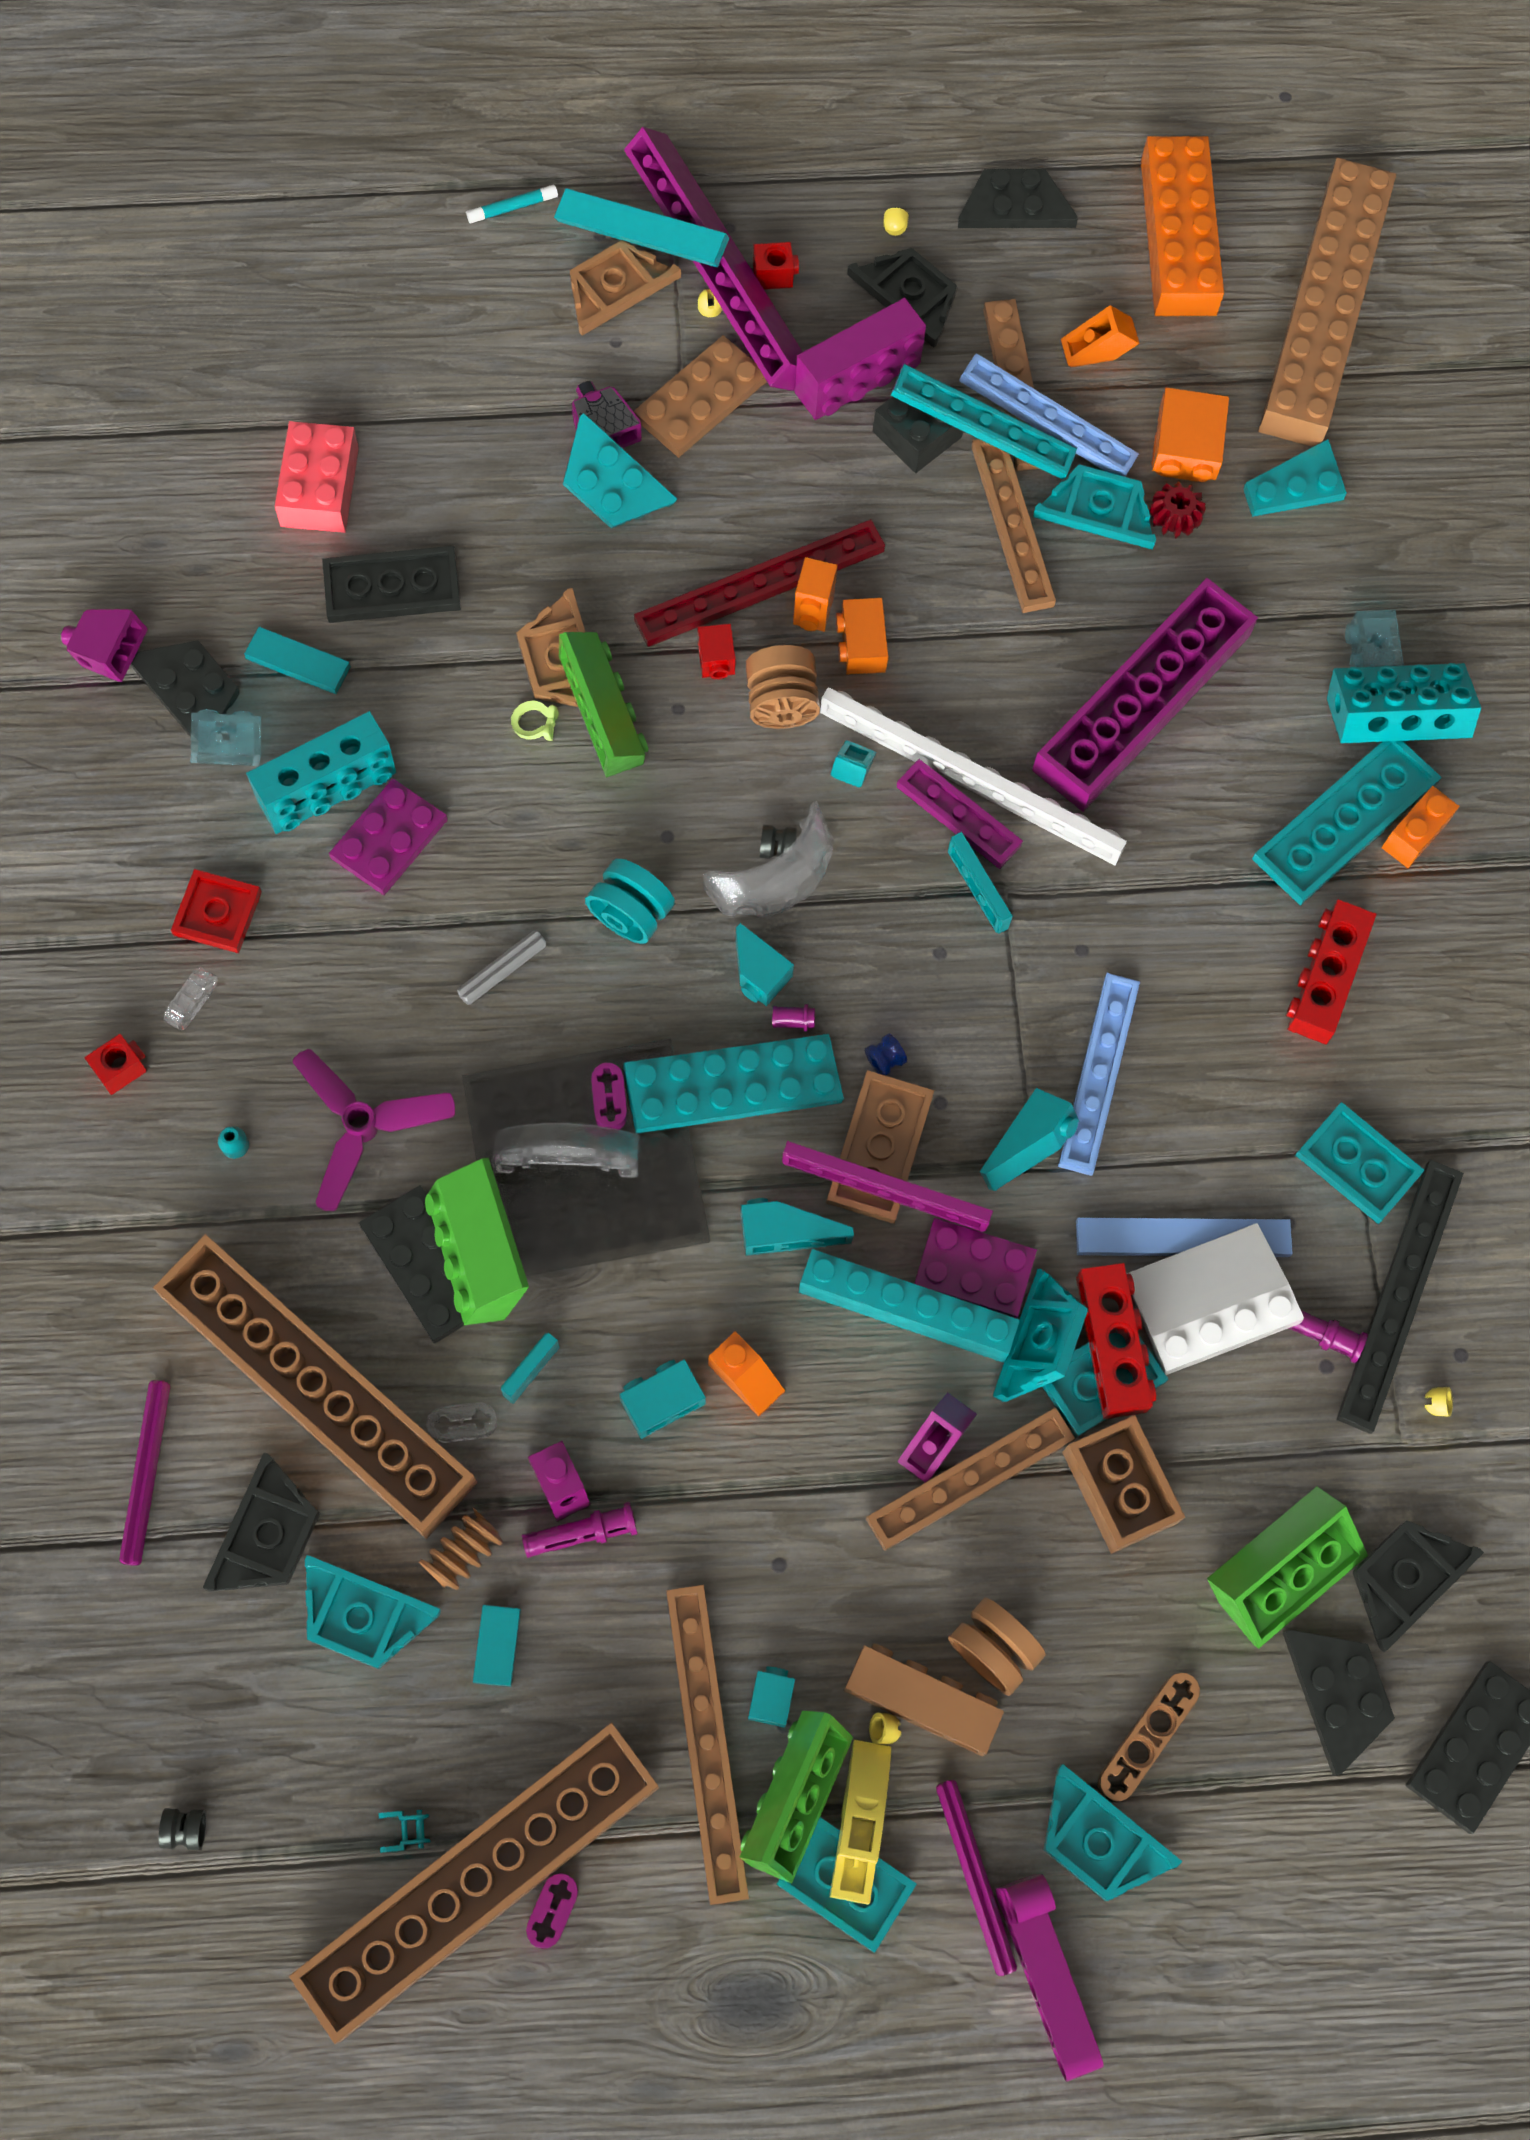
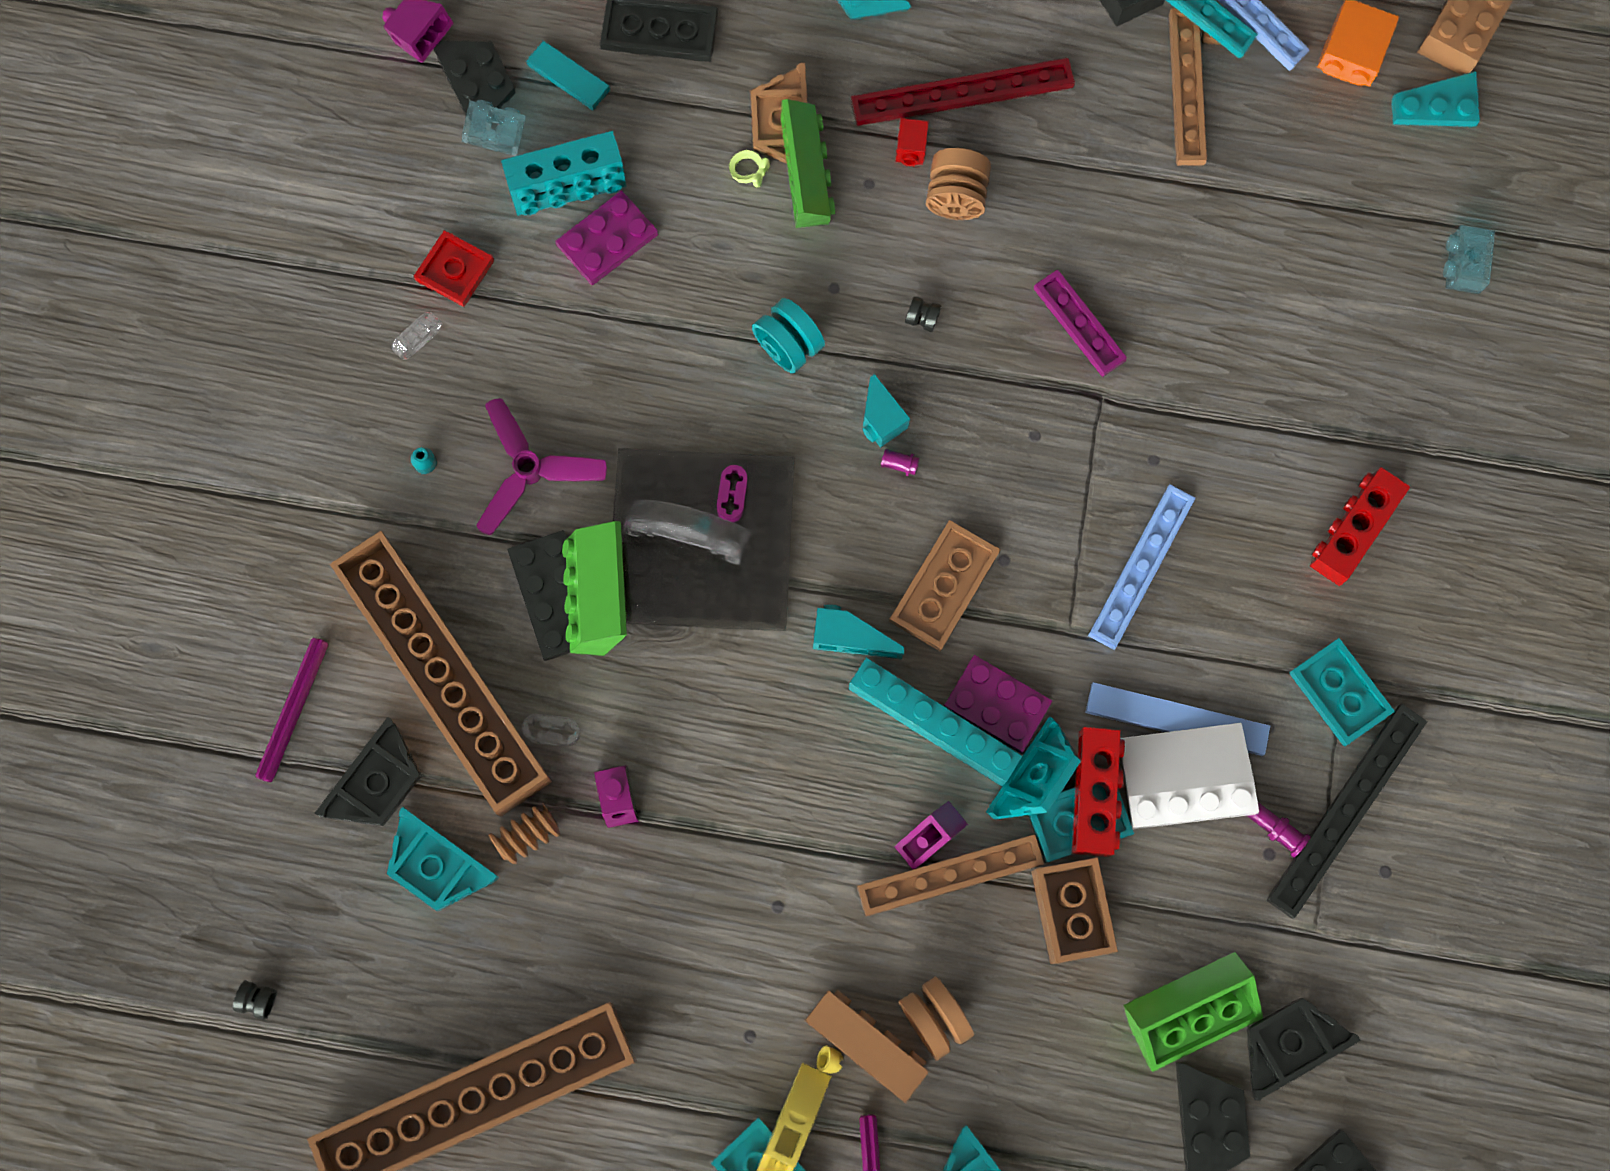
camera: 15 degrees right, 5 degrees up
(103, 1057) = (337, 367): red brick -> none
(420, 1835) = (439, 1051): teal piece -> none
(496, 1646) = (535, 916): teal tile -> none
(501, 967) = (672, 366): light grey axle -> none
(530, 1367) = (615, 699): teal tile -> none
(543, 1906) = (522, 1133): magenta beam -> none
(597, 1527) = (638, 841): magenta pin -> none
(662, 1397) = (715, 749): teal brick -> none
(707, 1745) = (683, 1038): medium nougat plate -> none
(732, 1083) = (836, 505): teal plate -> none
(745, 1373) = (788, 746): orange slope -> none
(771, 1697) = (744, 1012): teal brick -> none
(780, 882) = (916, 347): clear windscreen -> none
(796, 1795) = (743, 1097): bright green slope -> none
(814, 594) = (1004, 112): orange brick -> none
(852, 763) = (1002, 261): teal slope -> none
(863, 636) = (1037, 155): orange brick -> none
(886, 1055) = (968, 510): clear blue wheel -> none
(886, 1186) = (940, 620): magenta tile -> none
(978, 779) = (1105, 299): white plate -> none
(979, 883) = (1082, 385): teal tile -> none
(1032, 1137) = (1073, 606): teal slope -> none
(1100, 505) = (1265, 87): teal wing -> none
(1144, 694) = (1261, 256): magenta brick -> none
(1146, 1734) = (1041, 1118): medium nougat beam -> none
(1177, 509) = (1330, 104): dark red gear -> none
(1346, 819) = (1406, 399): teal plate -> none
(1403, 703) = (1481, 312): teal brick -> none
(1420, 827) = (1467, 421): orange brick -> none
(1441, 1401) = (1358, 906): light yellow hinge -> none

